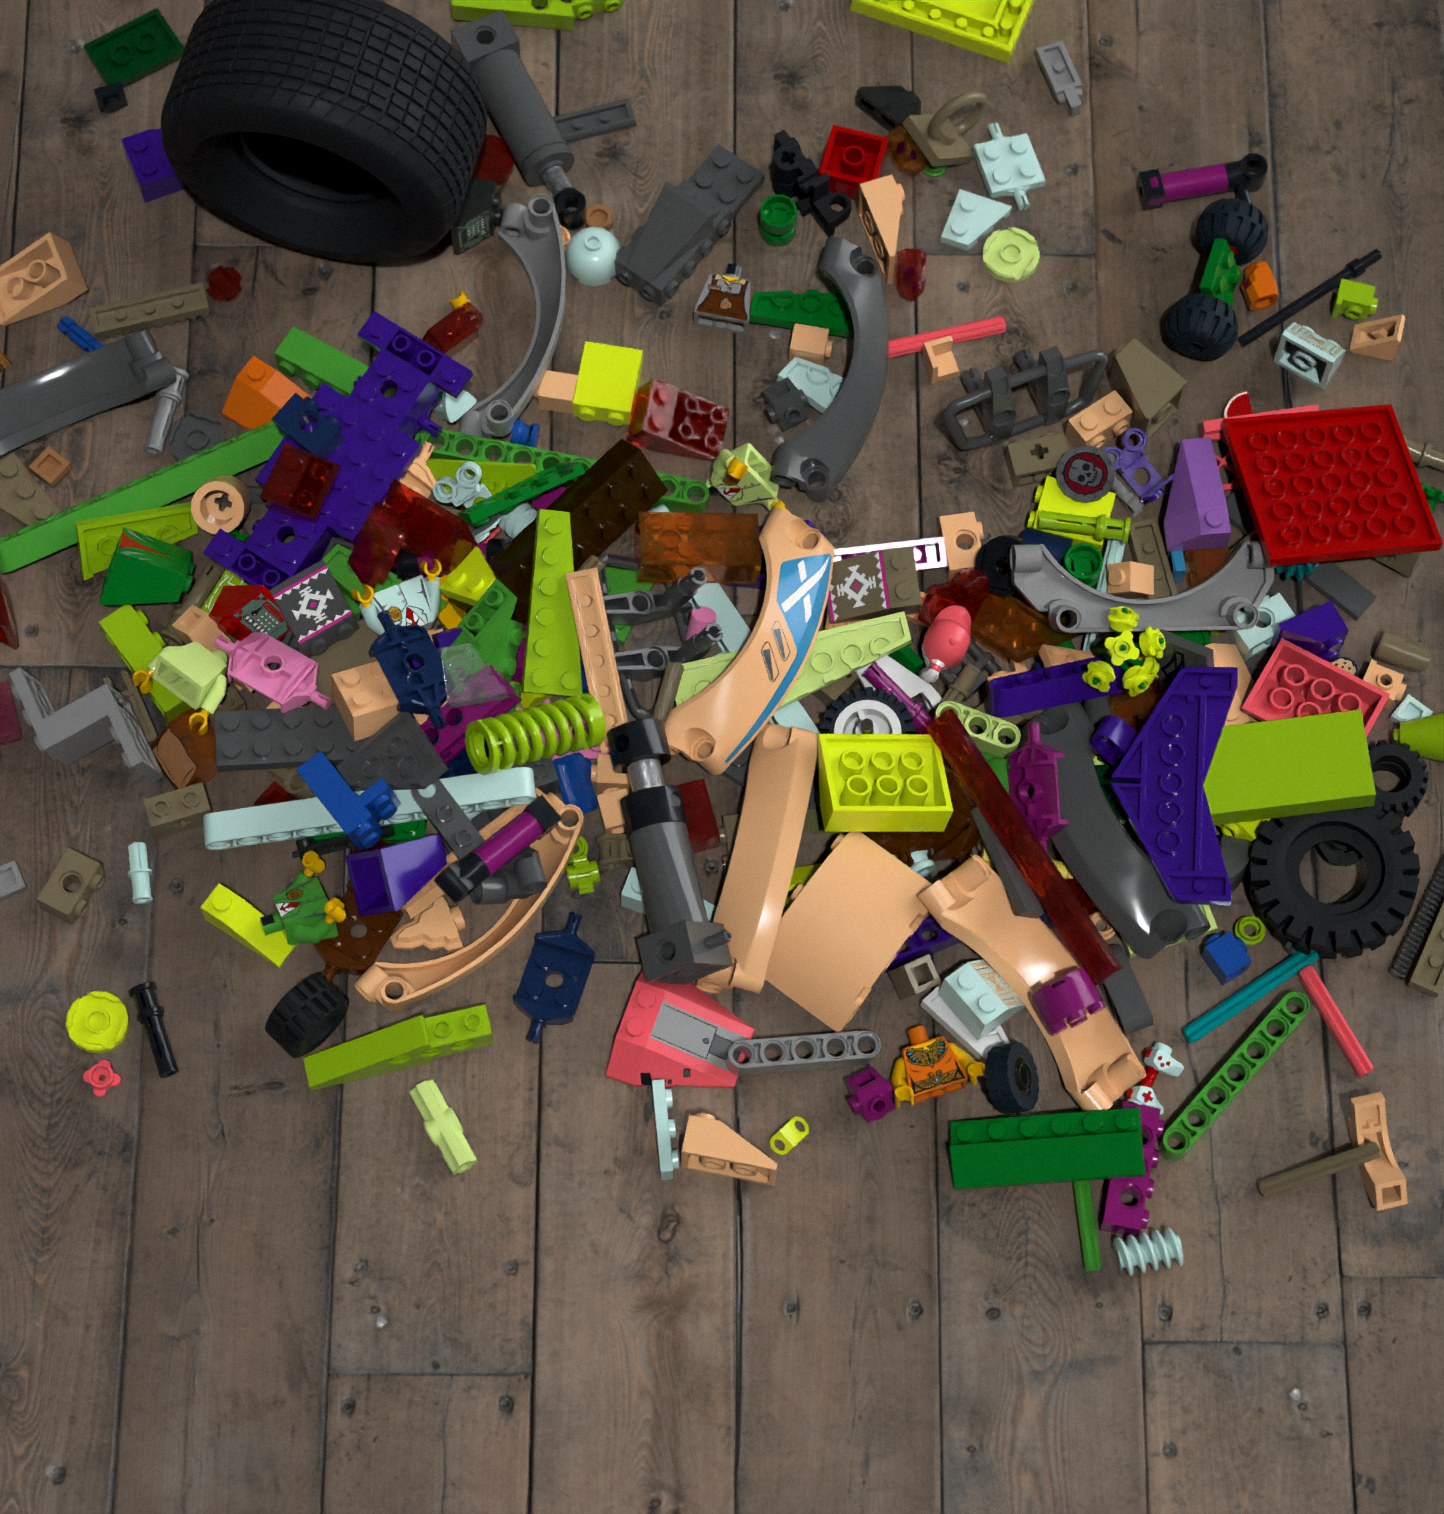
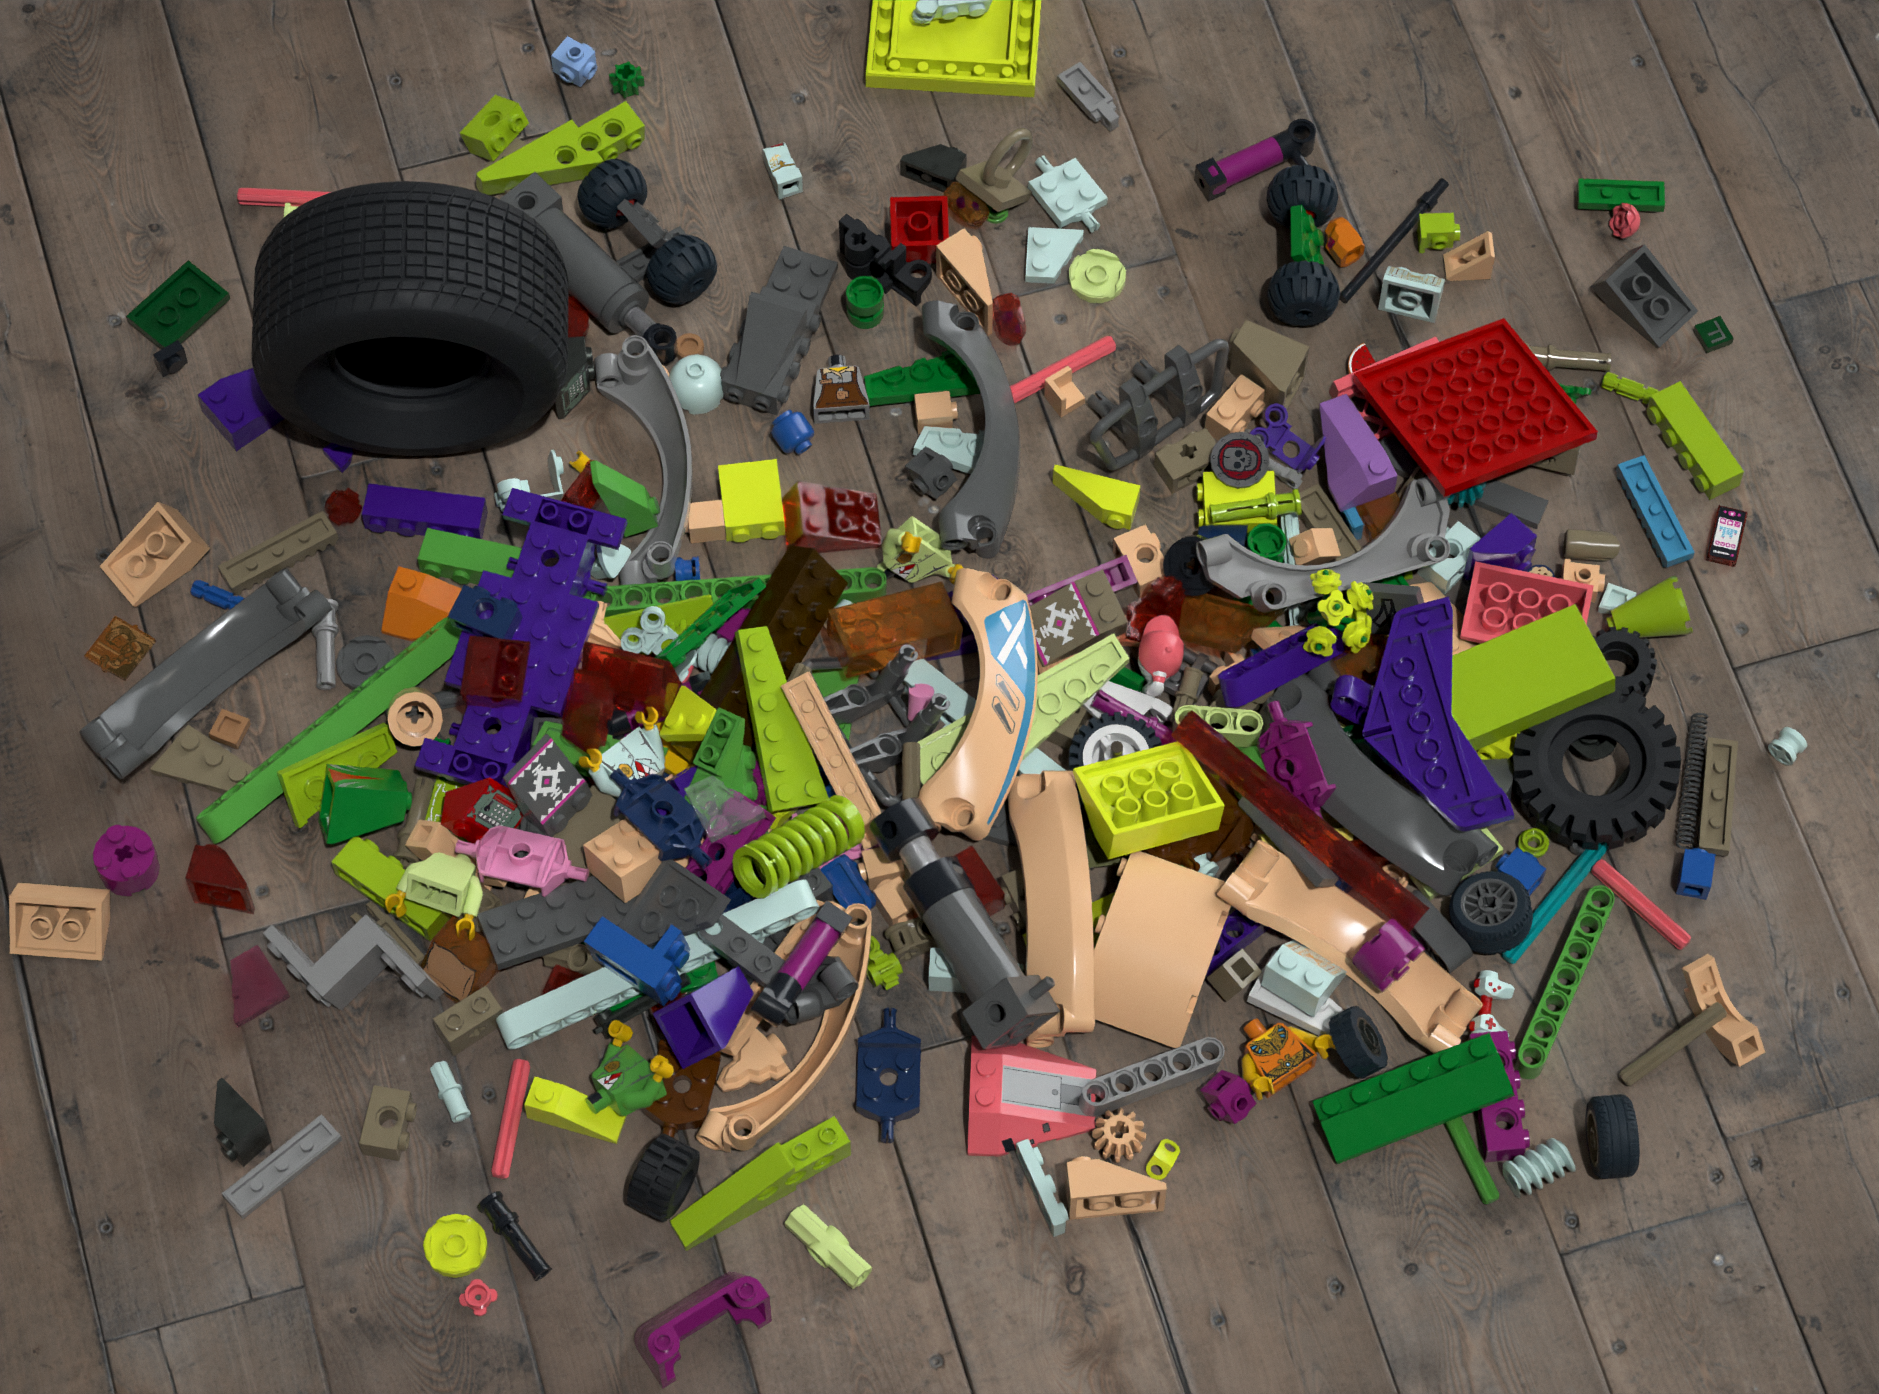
camera: 15 degrees left, 5 degrees down
(187, 916) = (510, 1119): none -> coral axle
(238, 235) = (339, 456): none -> dark purple tile
(258, 1164) = (661, 1336): none -> magenta windscreen
(291, 306) = (415, 510): none -> dark purple brick
(392, 312) = (555, 469): none -> light aqua piece
(484, 350) = (625, 498): none -> bright green slope
(614, 135) = (681, 263): none -> black plate
(668, 328) = (792, 432): none -> blue head
(742, 70) = (782, 170): none -> light aqua leg
(746, 1092) = (1107, 1131): none -> light nougat gear
(945, 474) = (1103, 497): none -> neon yellow slope
(1183, 987) = (1491, 912): none -> black wheel
(1228, 1243) = (1612, 1136): none -> black wheel
(1398, 1006) = (1695, 873): none -> blue brick

